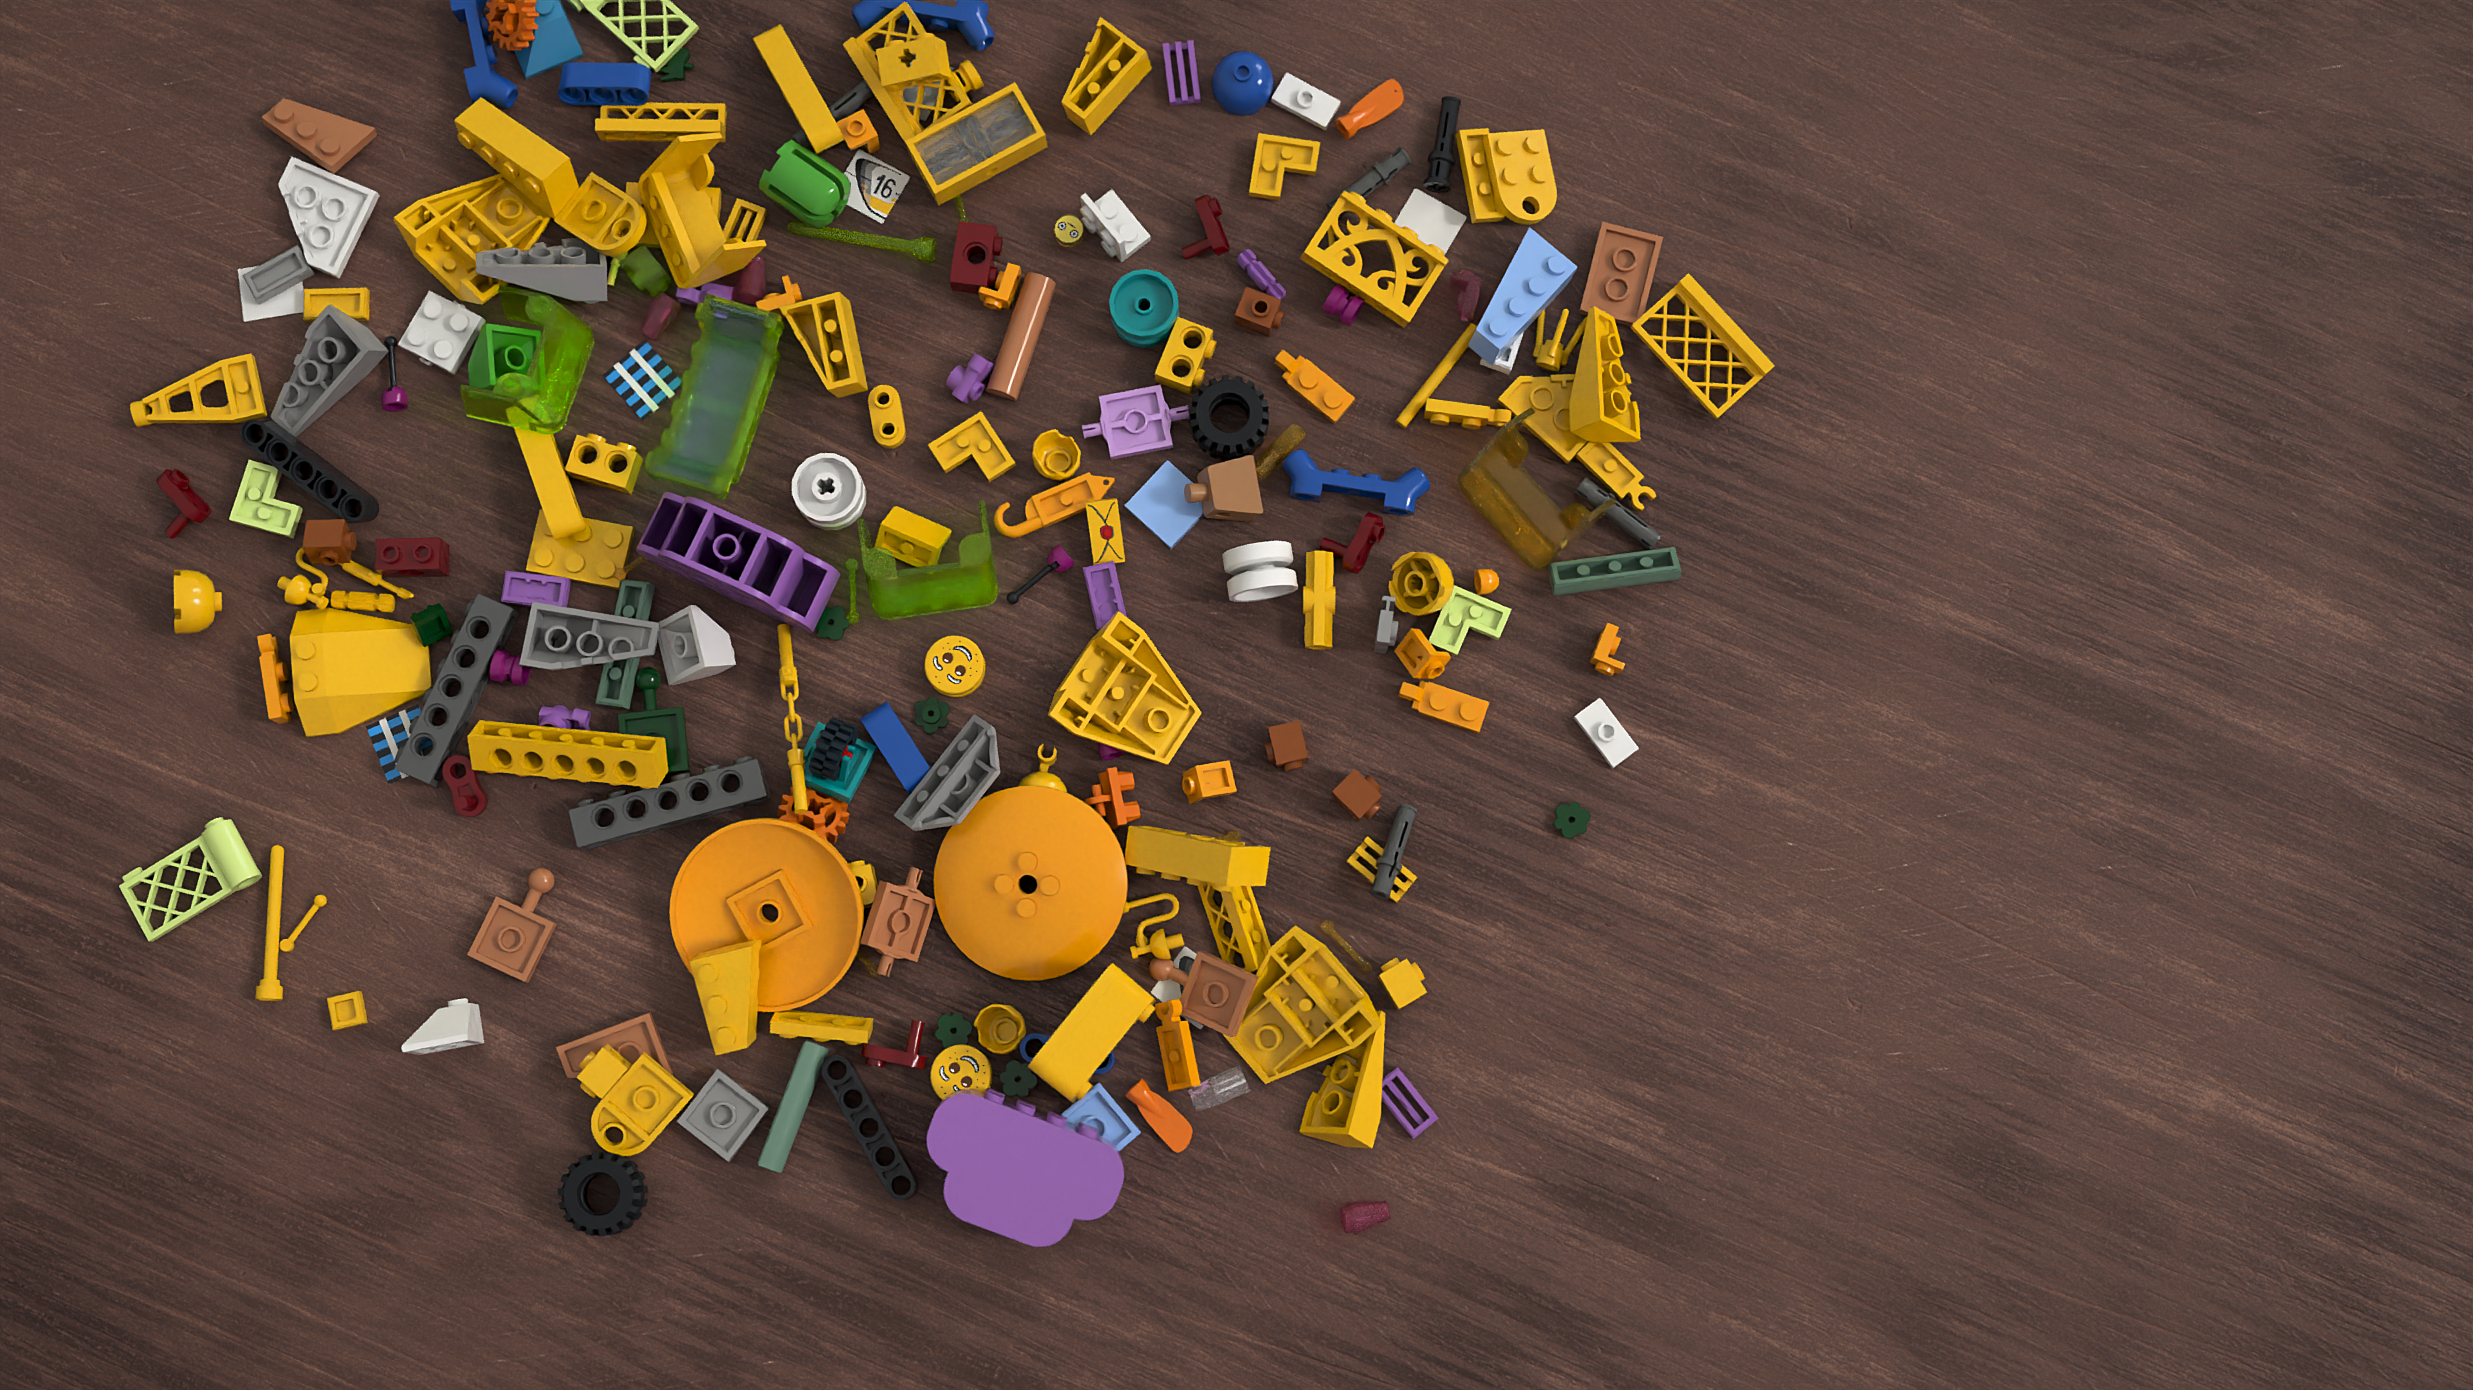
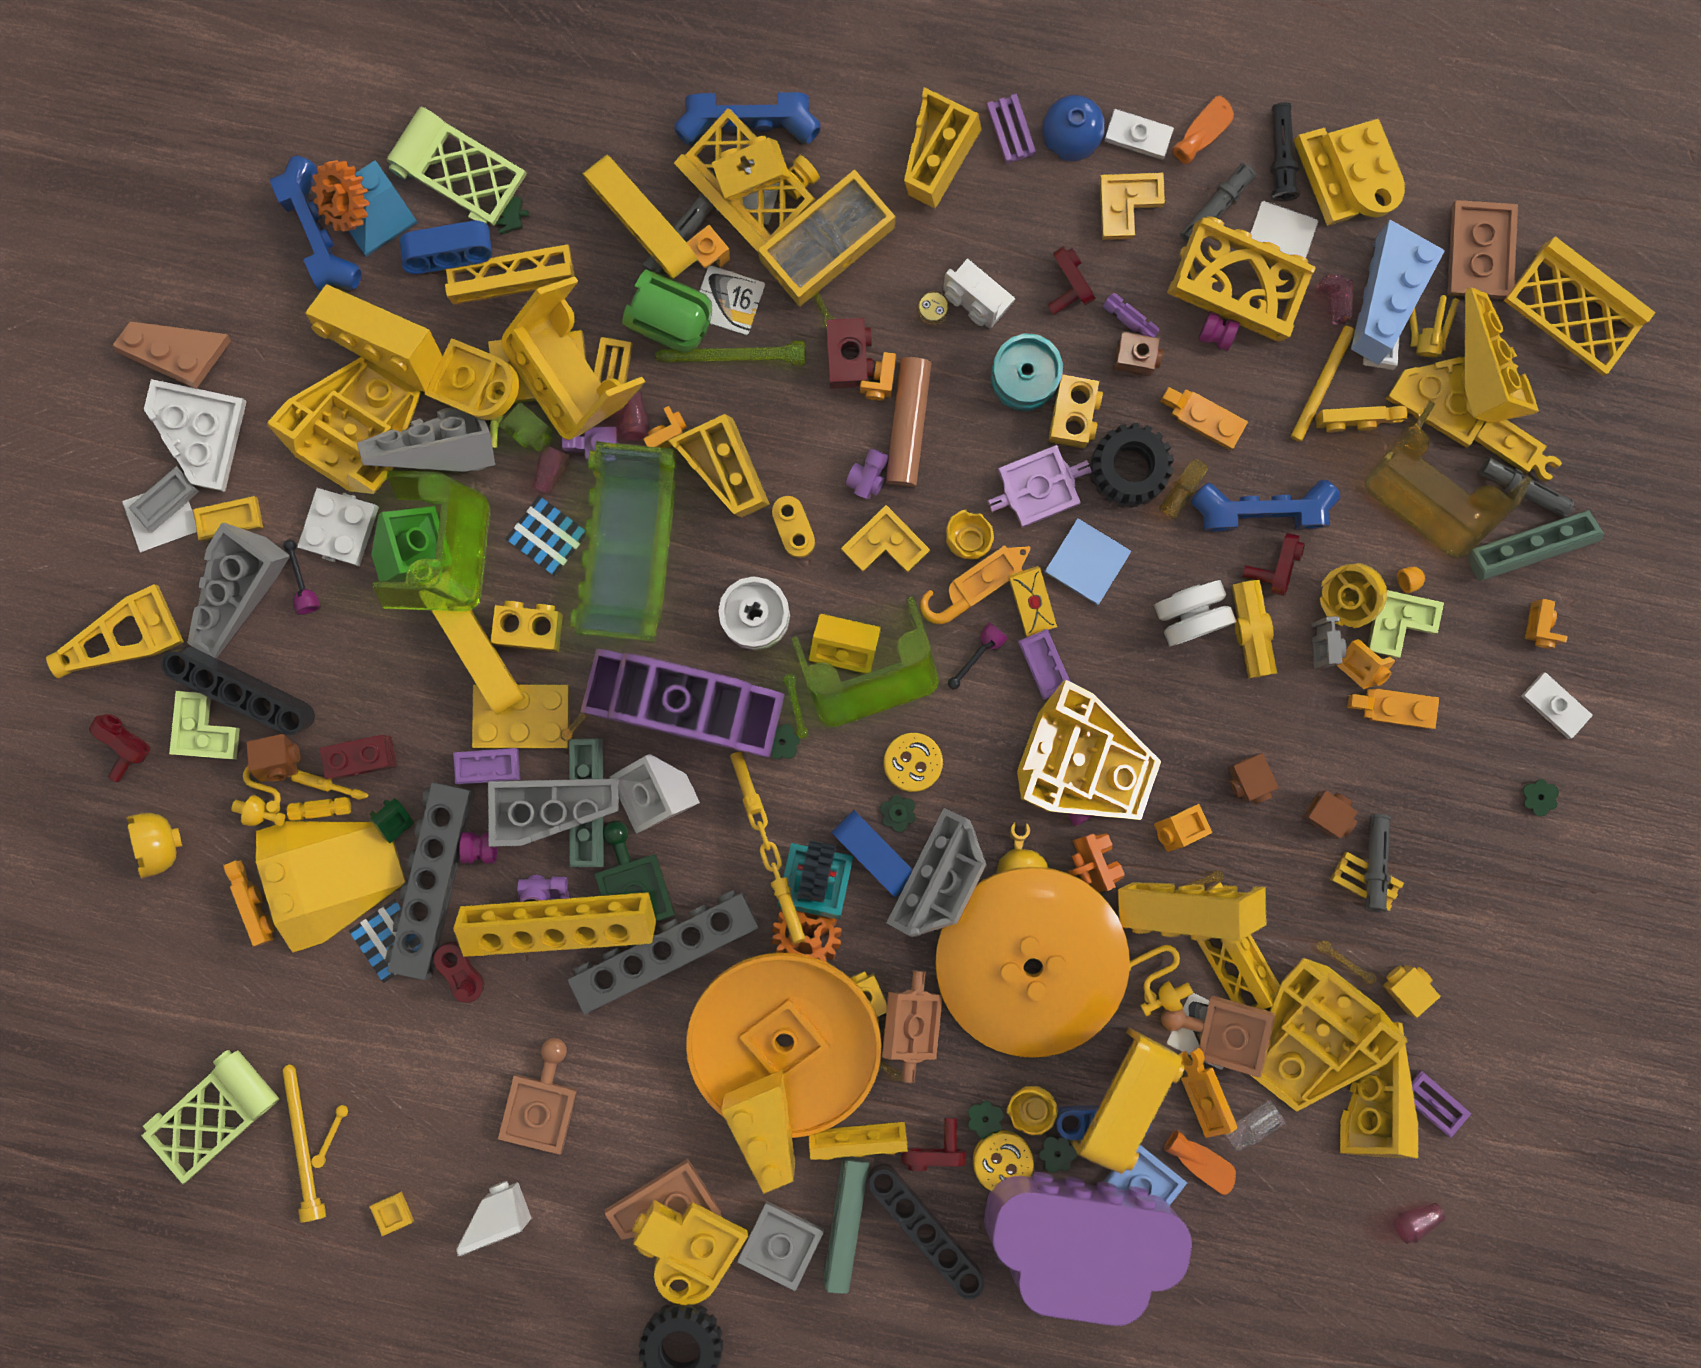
camera: 10 degrees left, 5 degrees up
(1228, 490) = (1145, 538): medium nougat torso -> none

